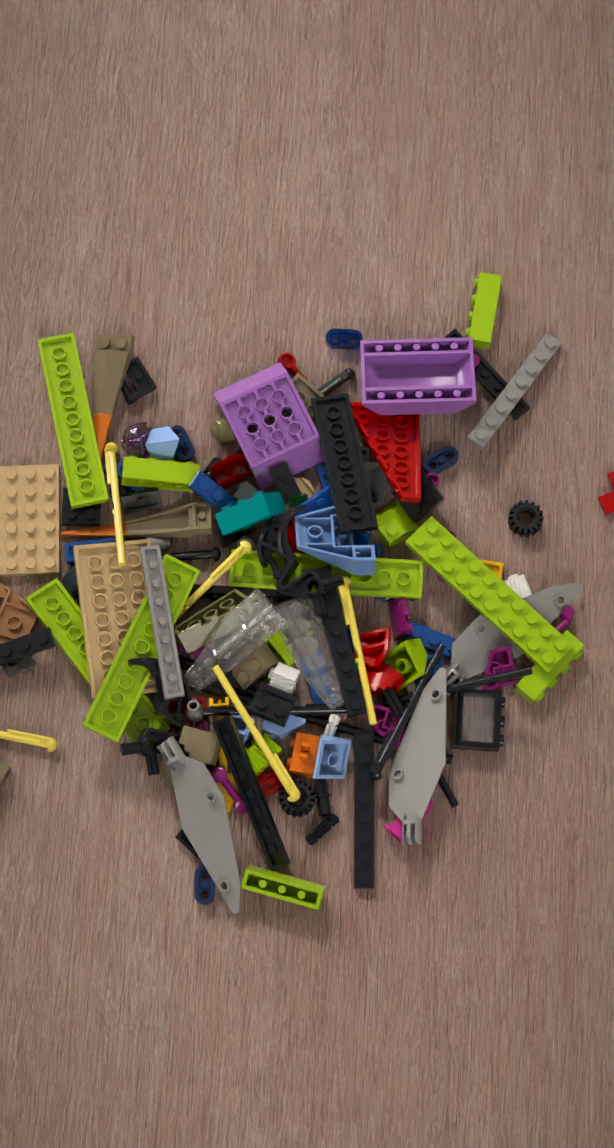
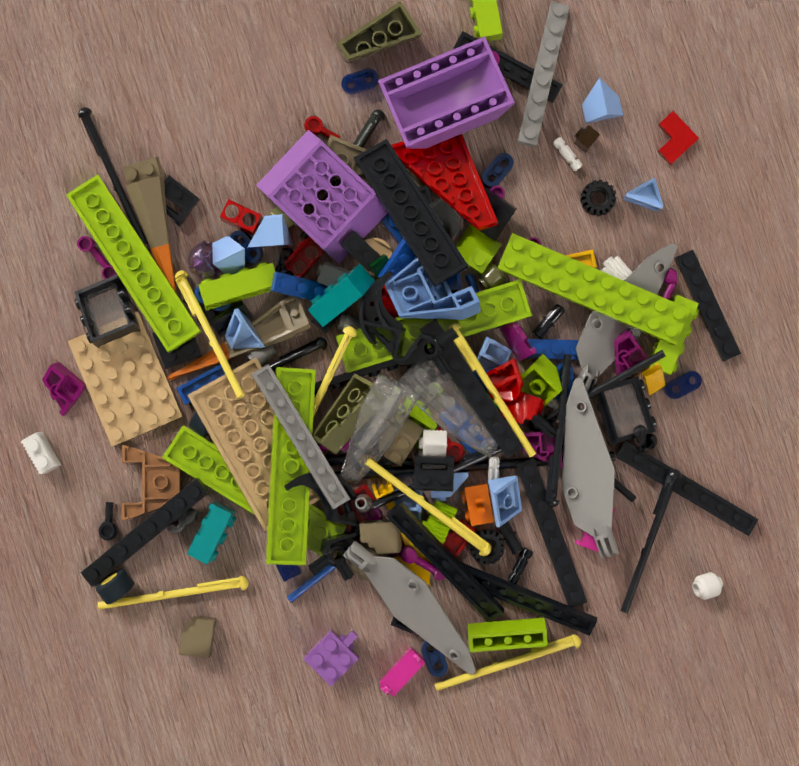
camera: 15 degrees left, 15 degrees up
(30, 451) = (106, 311): none -> window
(38, 390) = (88, 245): none -> magenta bar
(42, 686) = (212, 533): none -> teal wedge
(83, 279) = (84, 114): none -> black bar
(99, 749) = (288, 571): none -> clear blue plate
(108, 844) = (333, 655): none -> medium lavender hinge
(116, 769) = (309, 583): none -> blue bar
(145, 515) = (241, 332): none -> light blue slope
(167, 885) = (401, 672): none -> dark pink brick
(199, 428) = (238, 219): none -> red piece
(209, 438) = (271, 233): none -> light blue slope
(262, 917) = (536, 652): none -> light yellow bar
(303, 696) = (453, 449): none -> red plate
(323, 868) = (534, 602): none -> black plate
(370, 619) = (492, 354): none -> light blue slope
(382, 304) = (382, 33): none -> olive wedge
(398, 550) = (492, 277): none -> olive head
(436, 612) = (548, 321): none -> black axle
(475, 826) = (659, 511): none -> black bar
(490, 757) = (648, 441): none -> black piece
(497, 916) = (707, 586): none -> white head
(511, 470) = (567, 154): none -> white axle
(511, 815) = (688, 489): none -> black plate
(516, 699) = (653, 379): none -> yellow tile
(534, 461) = (586, 138): none -> dark brown plate
(544, 719) = (683, 385): none -> clear blue plate
(560, 437) = (601, 103): none -> light blue slope
(569, 531) = (646, 195): none -> light blue slope
(594, 654) = (708, 305): none -> black plate

